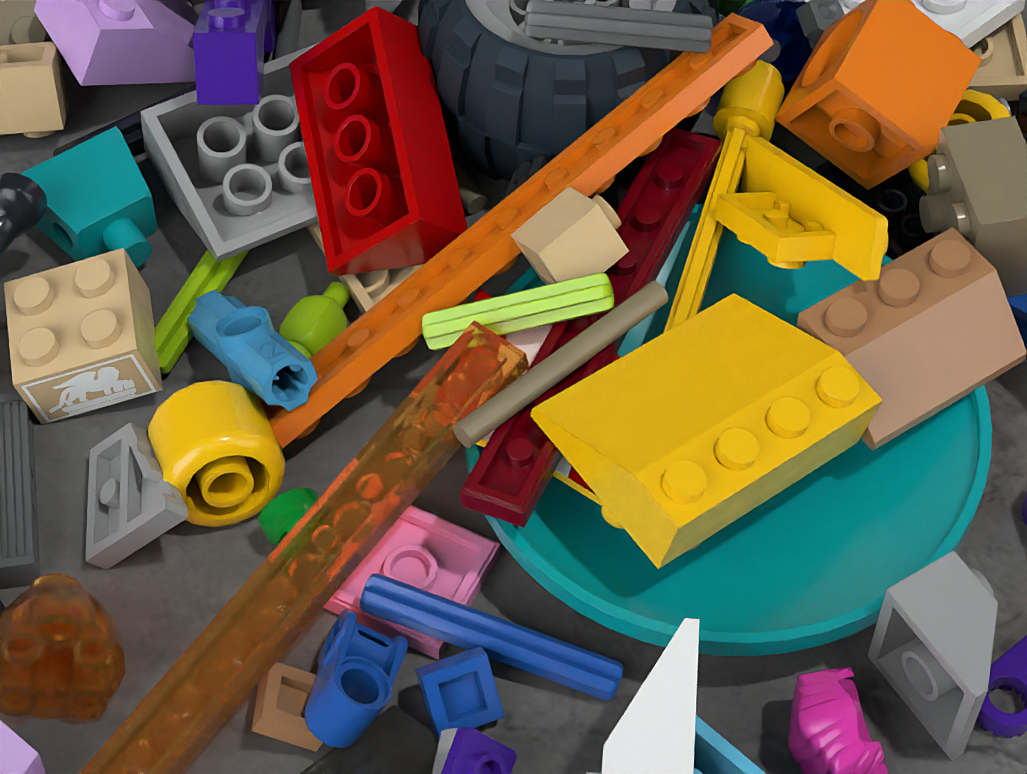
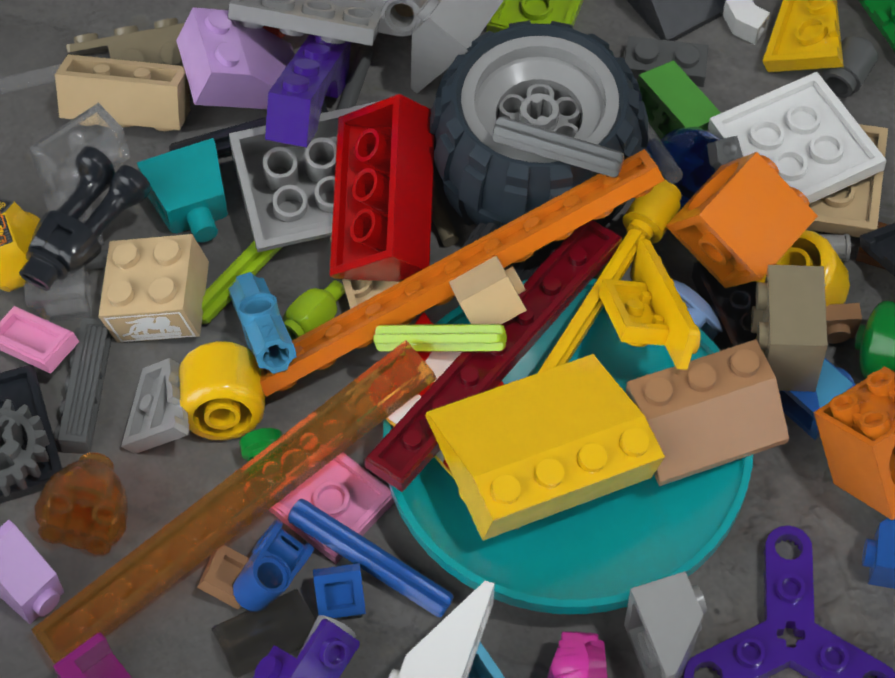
camera: 15 degrees right, 5 degrees up
(560, 364) = (457, 382): dark tan bar -> none

